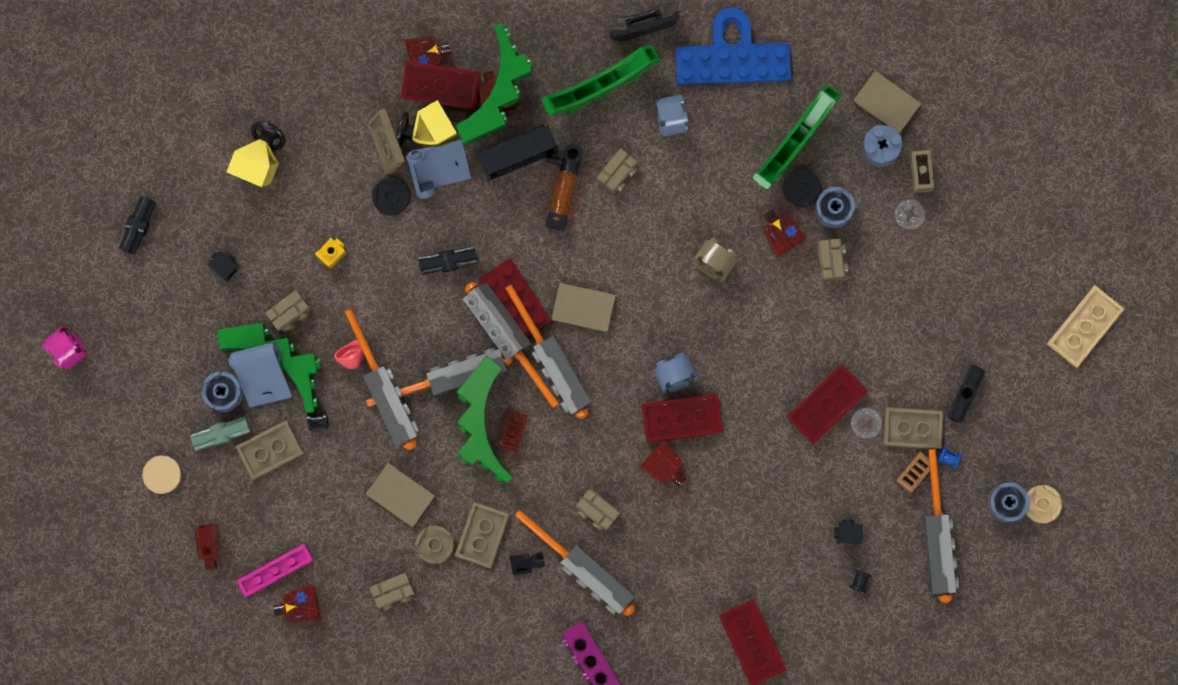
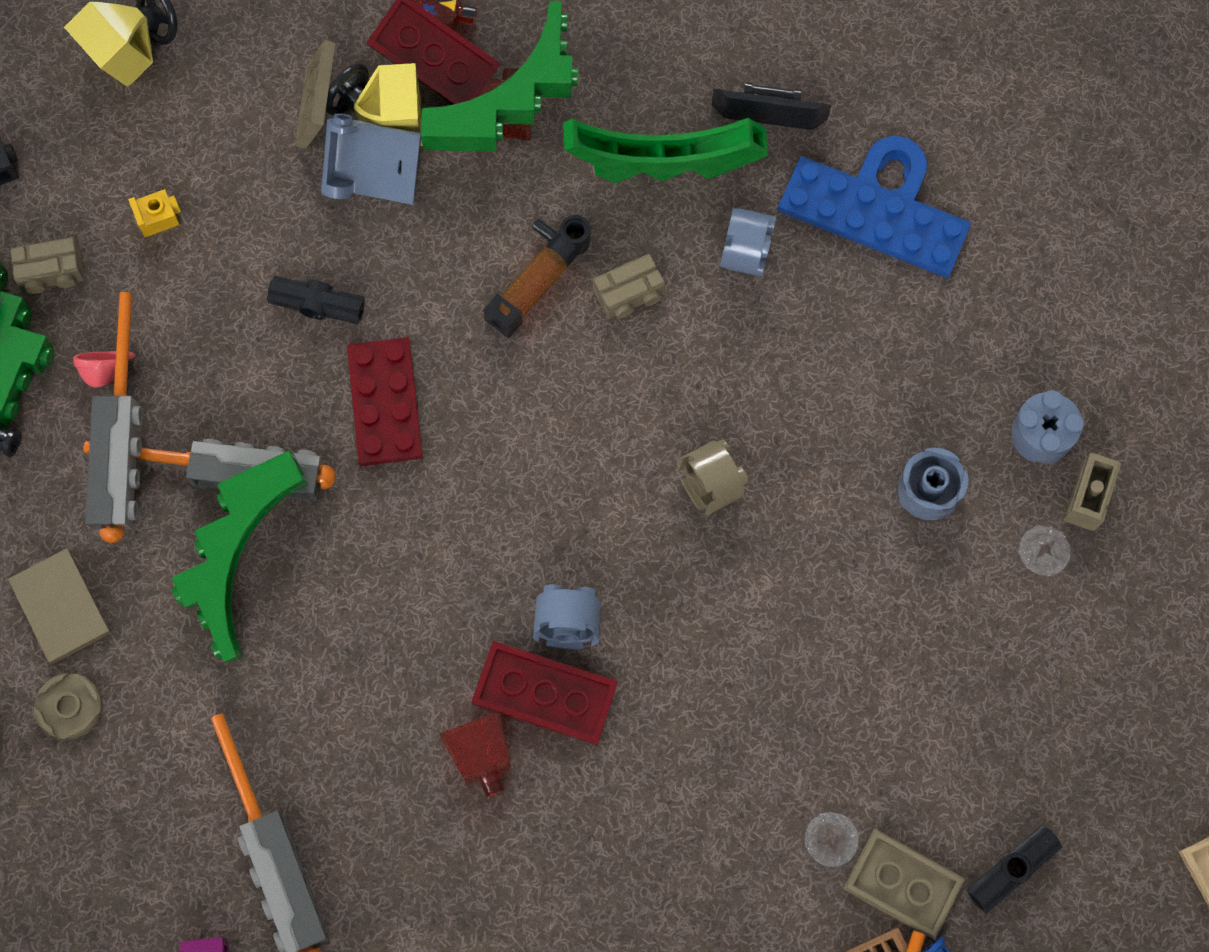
camera: 20 degrees right, 10 degrees down
(396, 197) = (285, 186): black tile -> none
(482, 535) = (147, 726): dark tan tile -> none
(503, 330) = (340, 433): piece -> none
(508, 446) = (278, 607): clear red slope -> none
(518, 152) = (494, 192): black brick -> none
(524, 563) = (184, 802): black plate -> none
(555, 365) = (391, 523): piece -> none
(583, 307) = (479, 458): dark tan tile -> none
(597, 510) = (341, 772): dark tan brick -> none
(782, 233) = (834, 487): clear red torso -> none
(797, 137) = (910, 364): green arch -> none
(801, 187) = (890, 444): black tile -> none
(827, 404) = (782, 779): dark red plate -> none
(831, 259) = (892, 560): dark tan brick -> none
(886, 102) = (1081, 370): dark tan tile -> none

